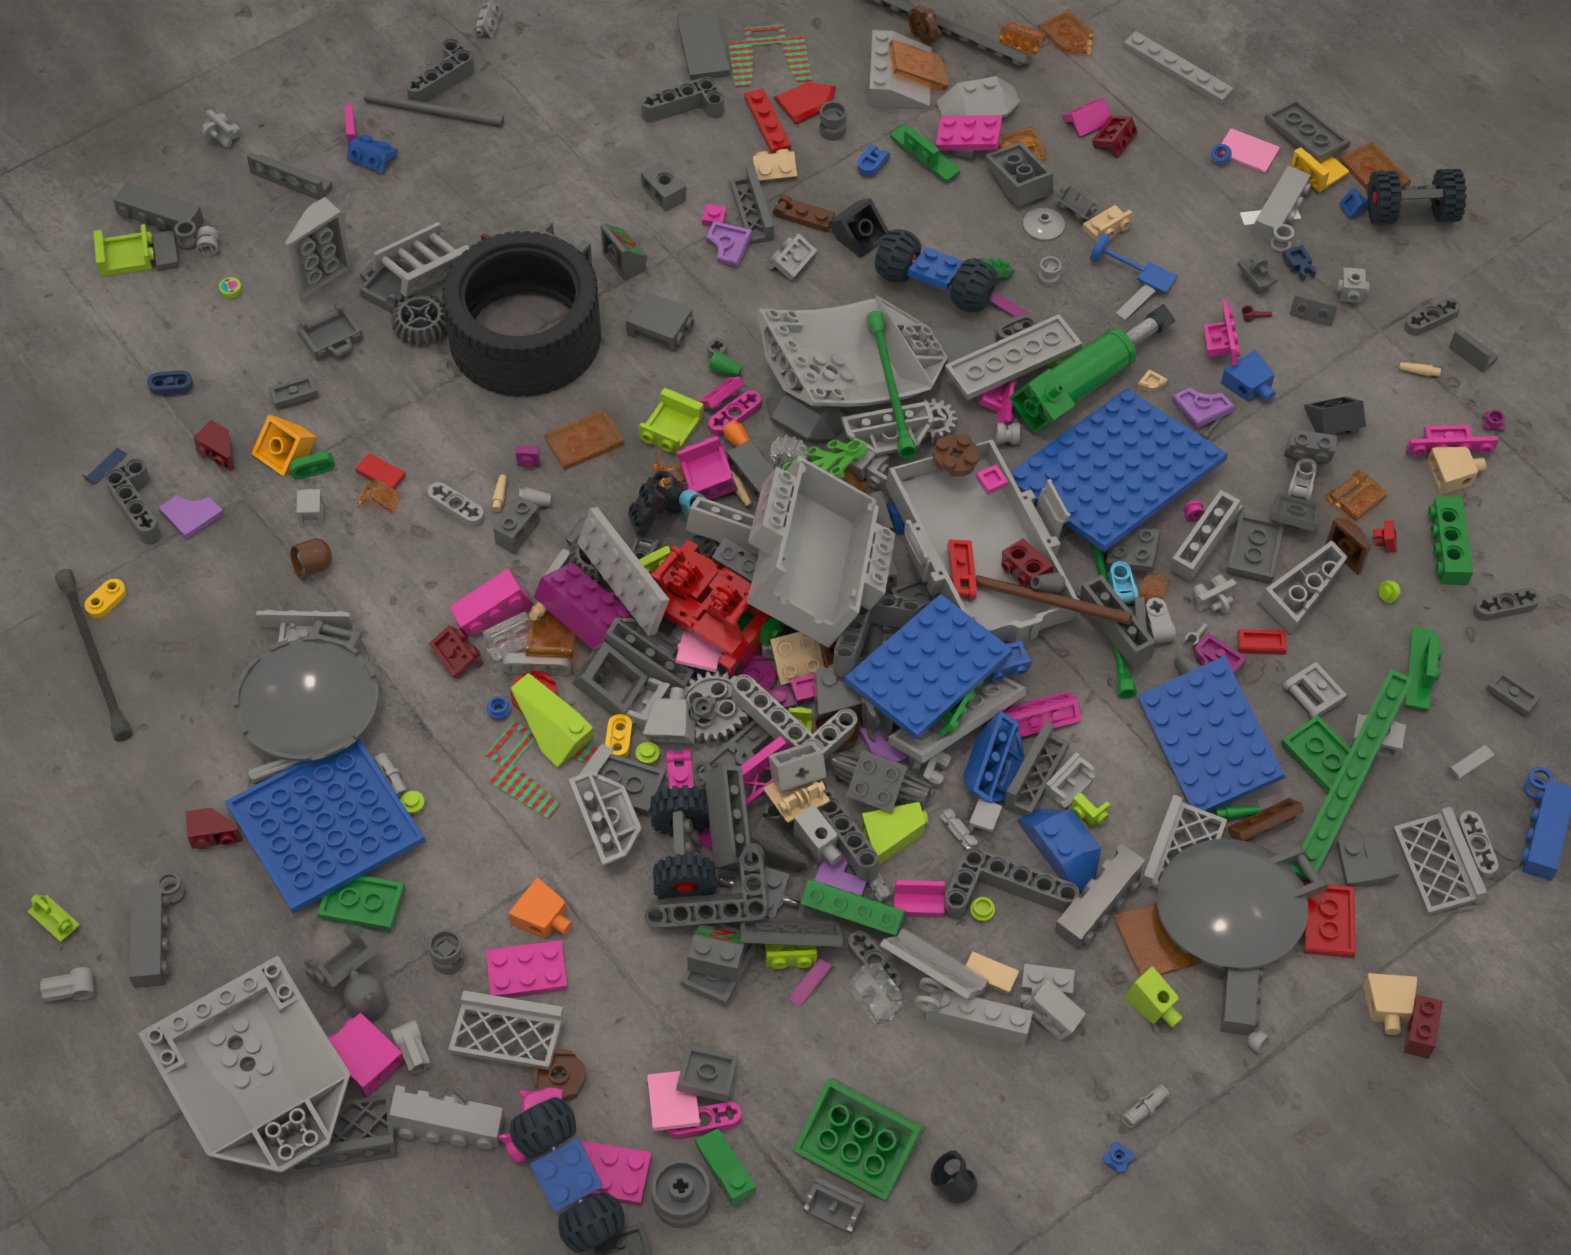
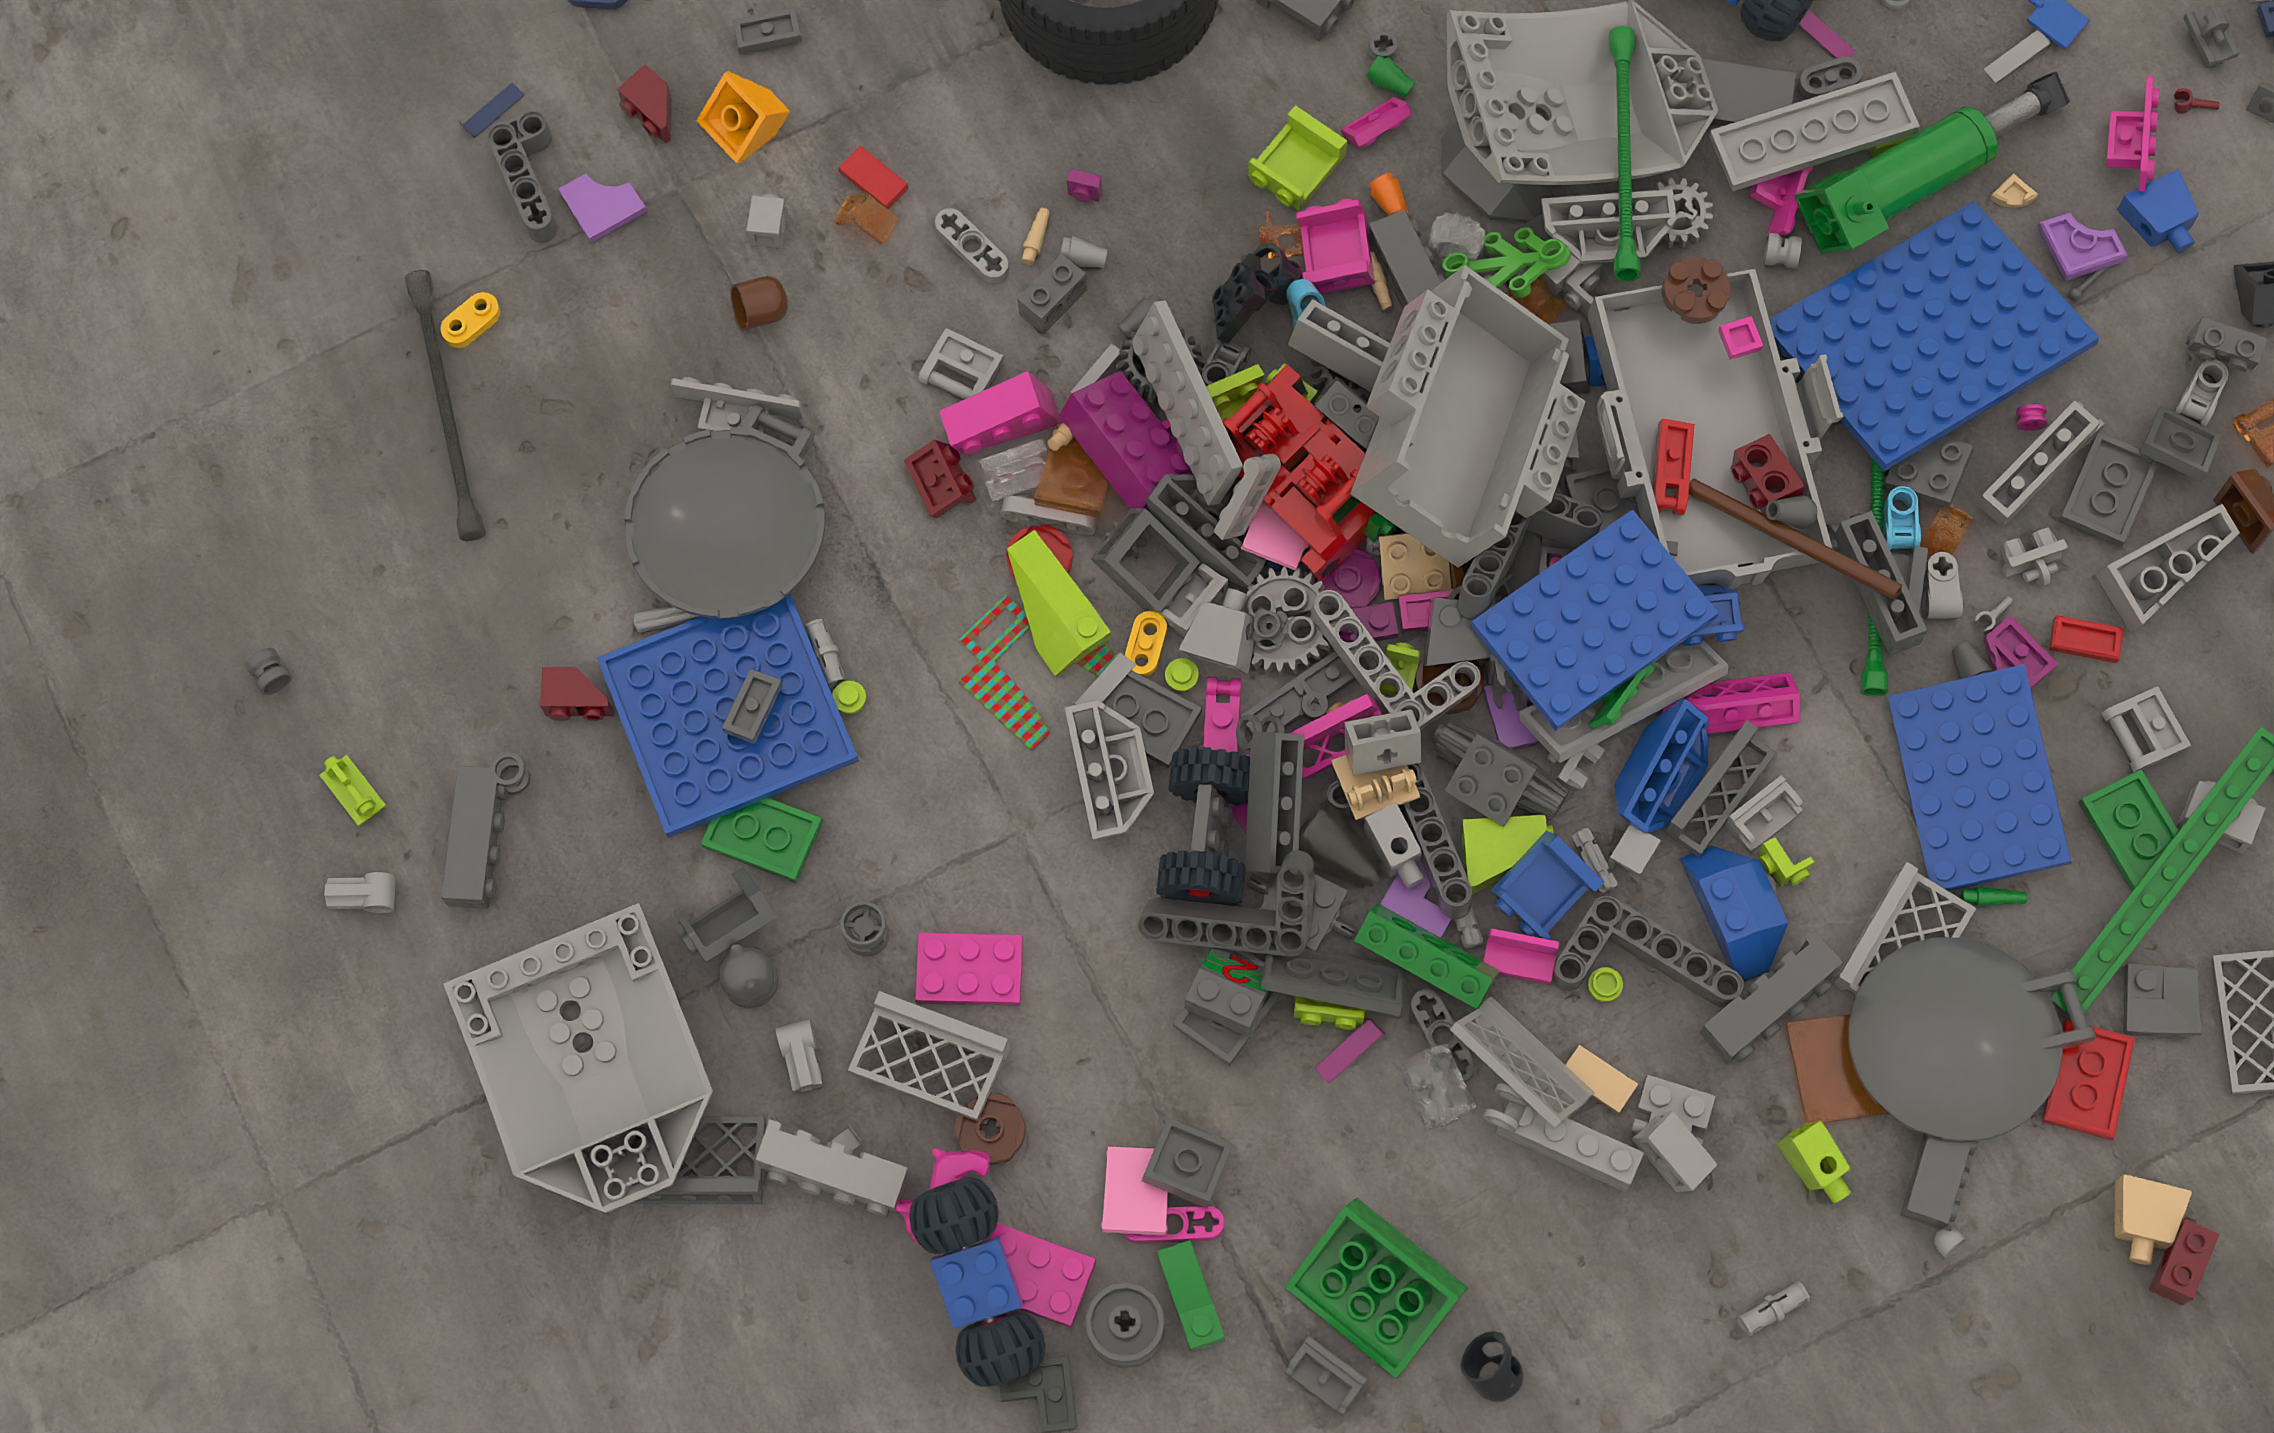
camera: 15 degrees right, 15 degrees up
(311, 465) = (778, 154): green plate -> none
(343, 813) = (752, 706): none -> dark grey plate
(366, 1053) = (737, 1056): dark pink panel -> none
(458, 573) = (964, 358): none -> light grey plate
(498, 702) = (986, 564): blue plate -> none
(540, 911) = (1000, 889): orange torso -> none
(584, 439) = (1169, 167): clear orange tile -> none
(675, 621) = (1247, 495): none -> light grey plate
(738, 404) = (1397, 143): dark pink beam -> none
(928, 846) = (1544, 885): none -> blue panel
(1118, 1164) = (1721, 1384): blue plate -> none
(1265, 820) = (2031, 917): reddish brown plate -> none

